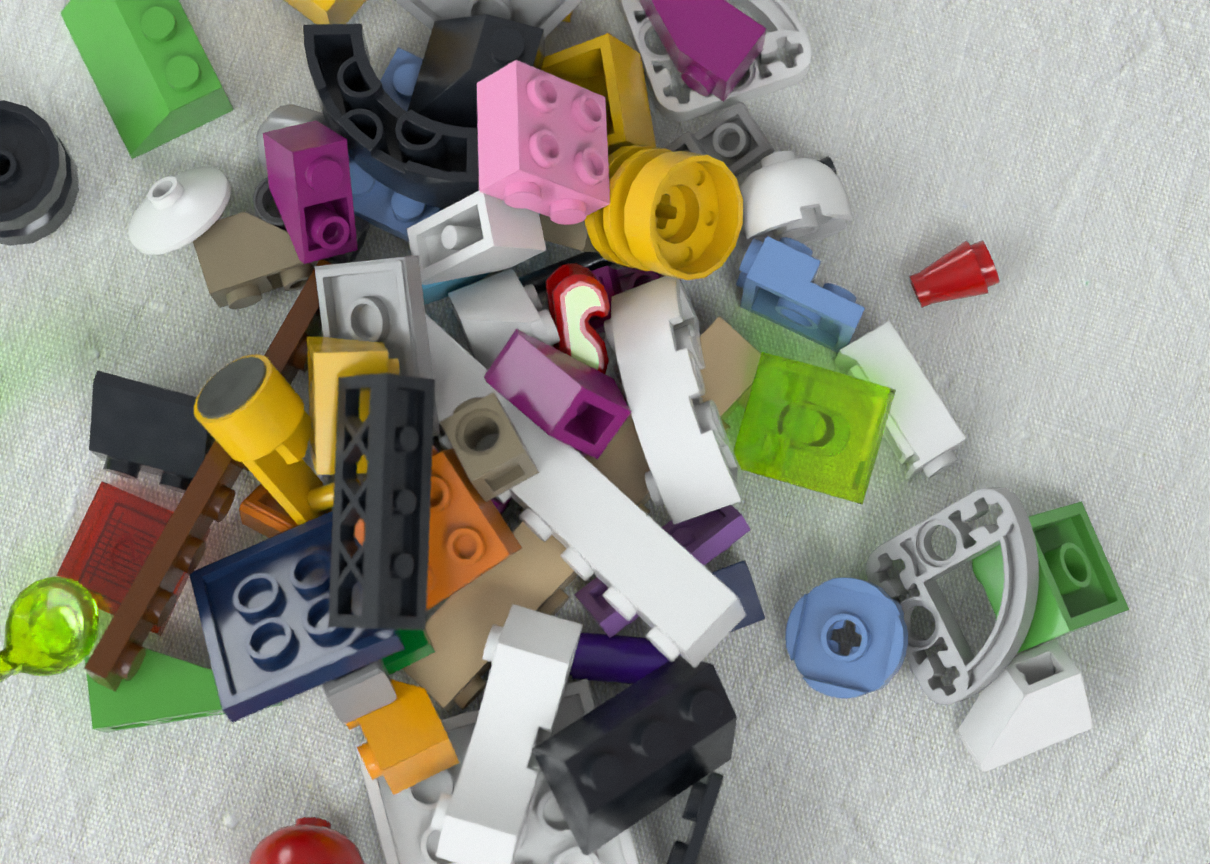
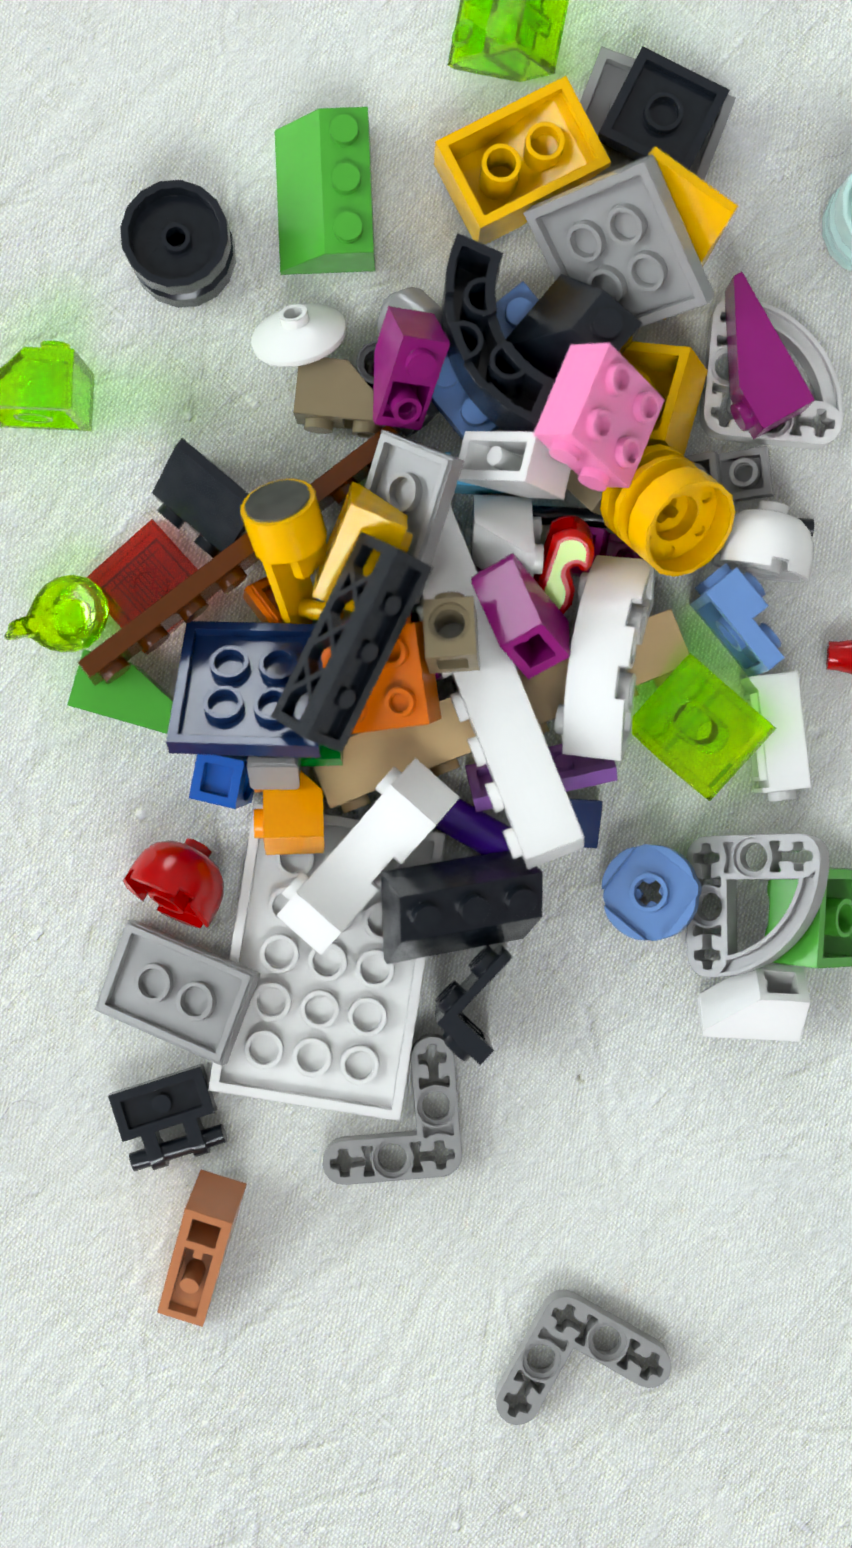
camera: 25 degrees right, 10 degrees up
(305, 731) = (221, 780): none -> blue brick

